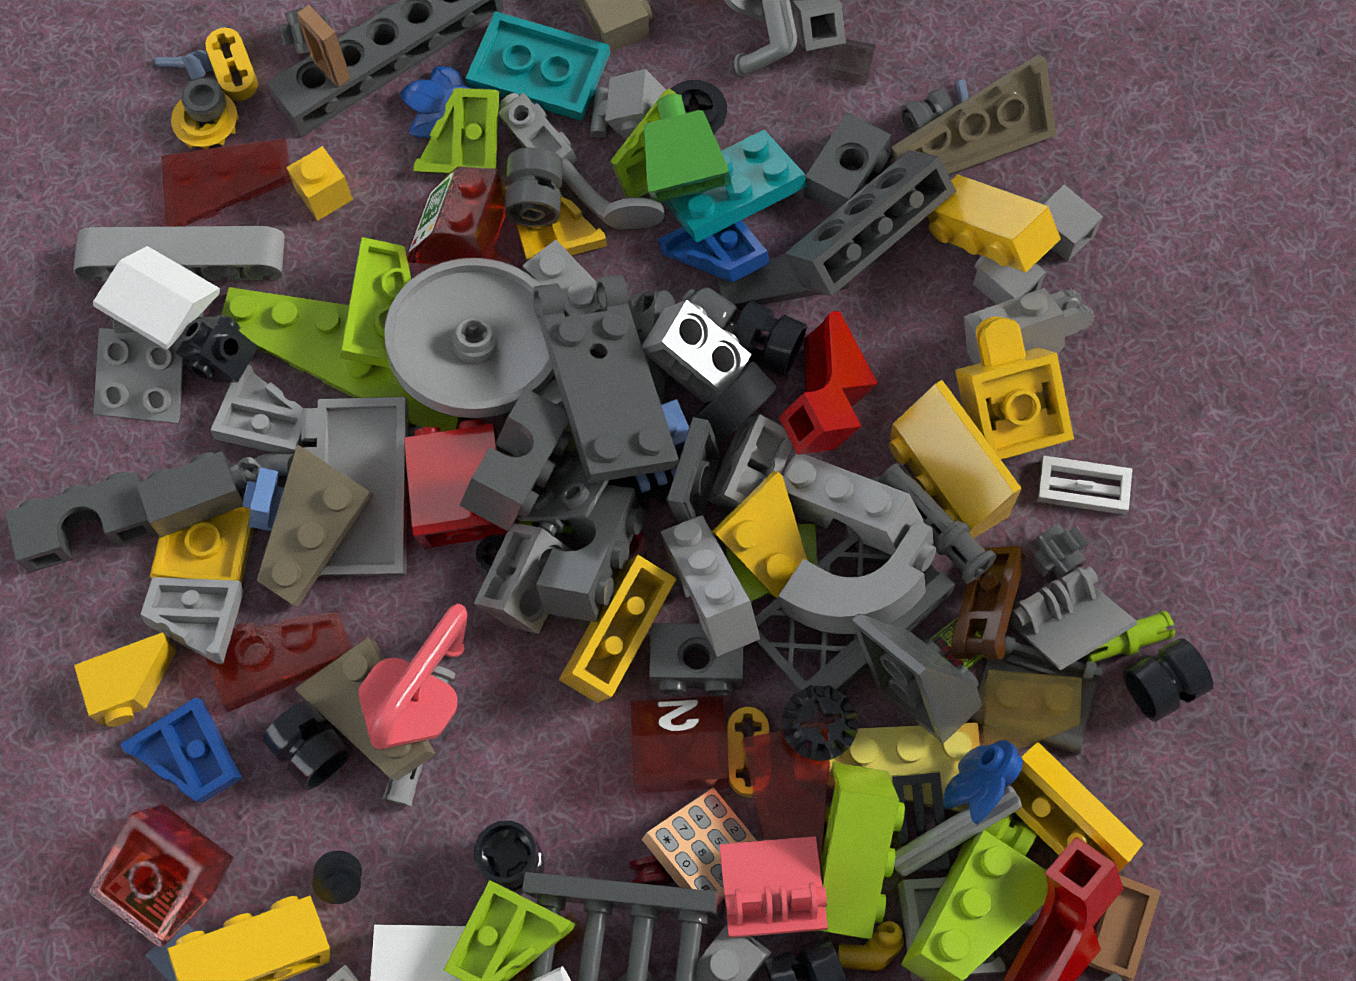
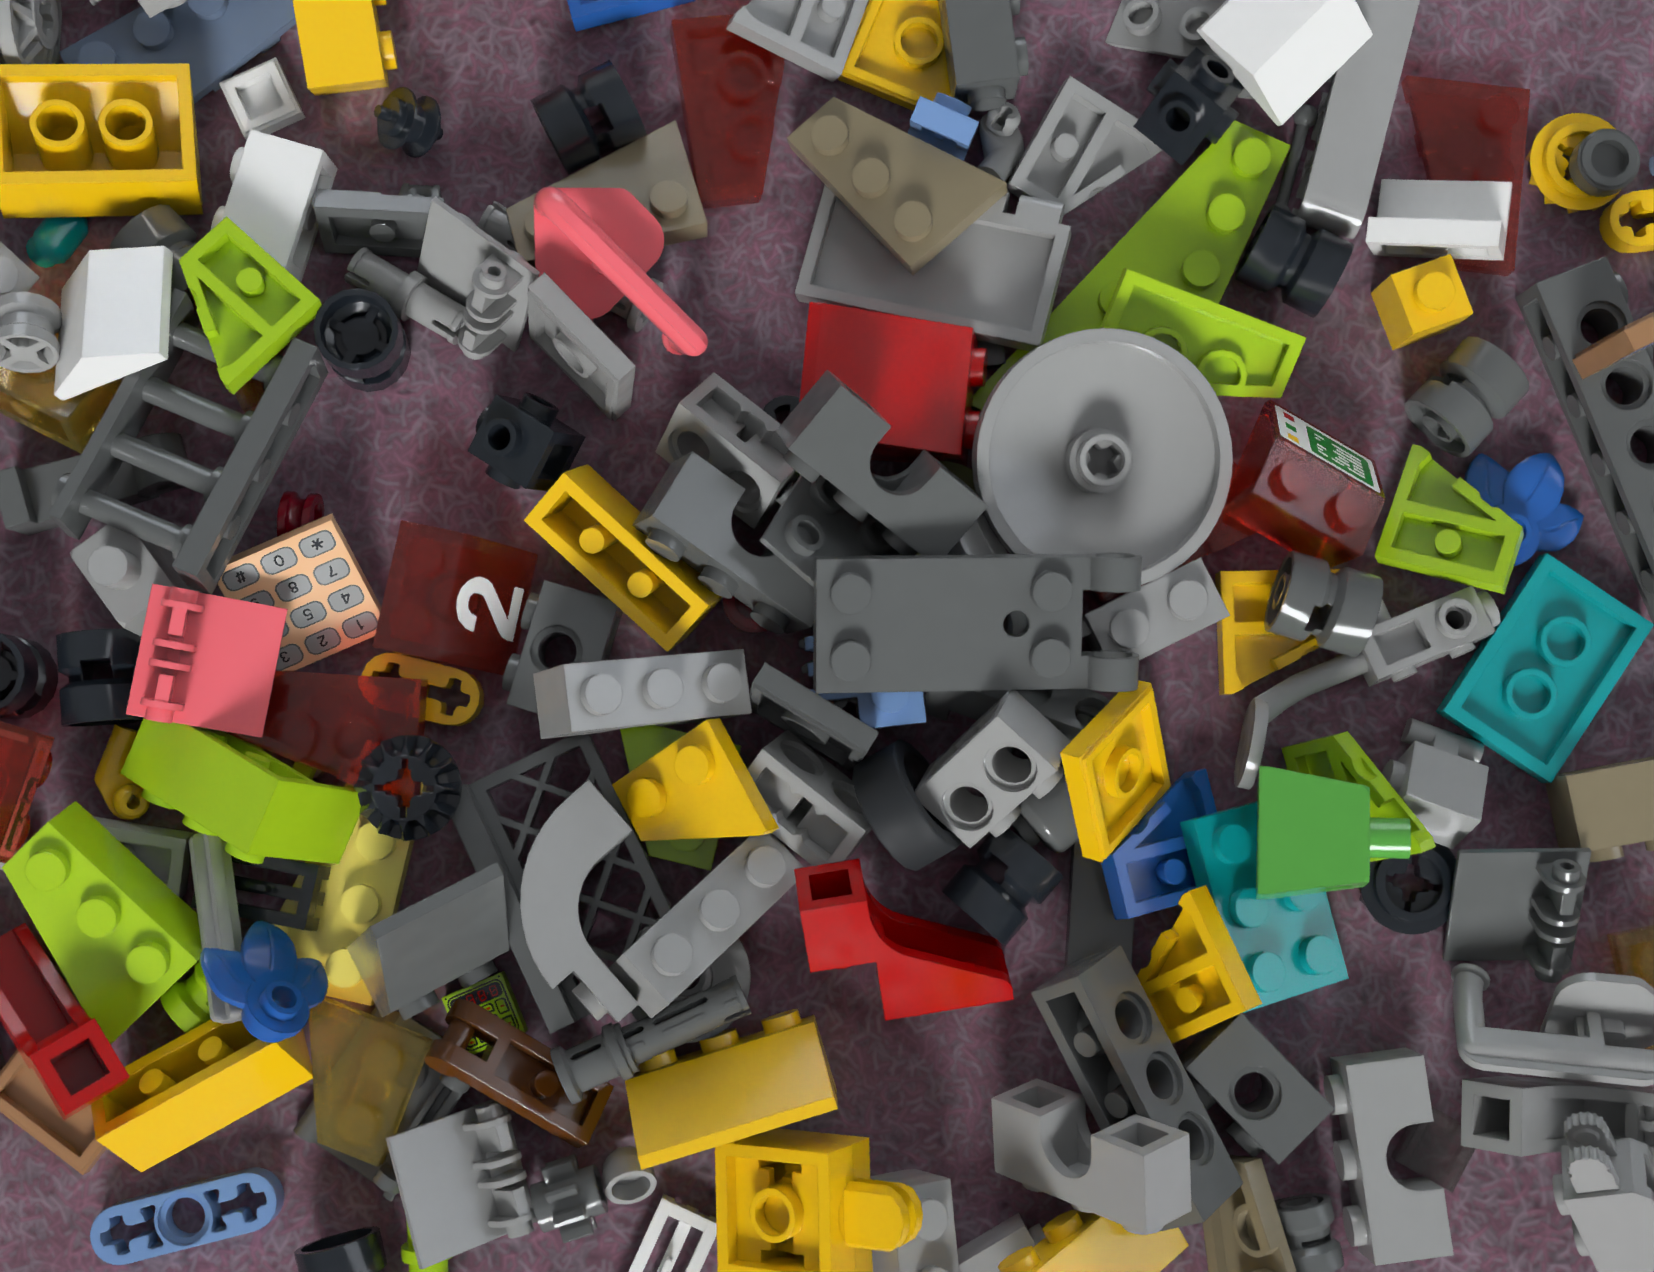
camera: 100 degrees right, 15 degrees up
(261, 183) = (1441, 219): none -> white panel
(276, 285) = (1304, 118): none -> dark grey hinge
(309, 262) = (1294, 261): none -> black wheel
(373, 143) = (1474, 388): none -> dark grey wheel
(419, 879) = (375, 221): none -> dark grey hinge
(445, 787) = (478, 275): none -> light grey hinge
(461, 854) = (407, 294): none -> light grey pin
(479, 696) = (579, 348): none -> light grey tile
(550, 706) = (524, 442): none -> black brick
(677, 280) = (1116, 770): none -> yellow tile
(691, 43) = (1517, 907): none -> dark grey hinge
(787, 204) = (1196, 971): none -> yellow wing
(899, 74) = (1374, 1100): none -> light grey arch
(925, 266) = (1123, 1173): none -> light grey arch
(1031, 521) = (624, 1179): none -> light grey hinge
(1170, 846) = (138, 1210): none -> medium blue beam

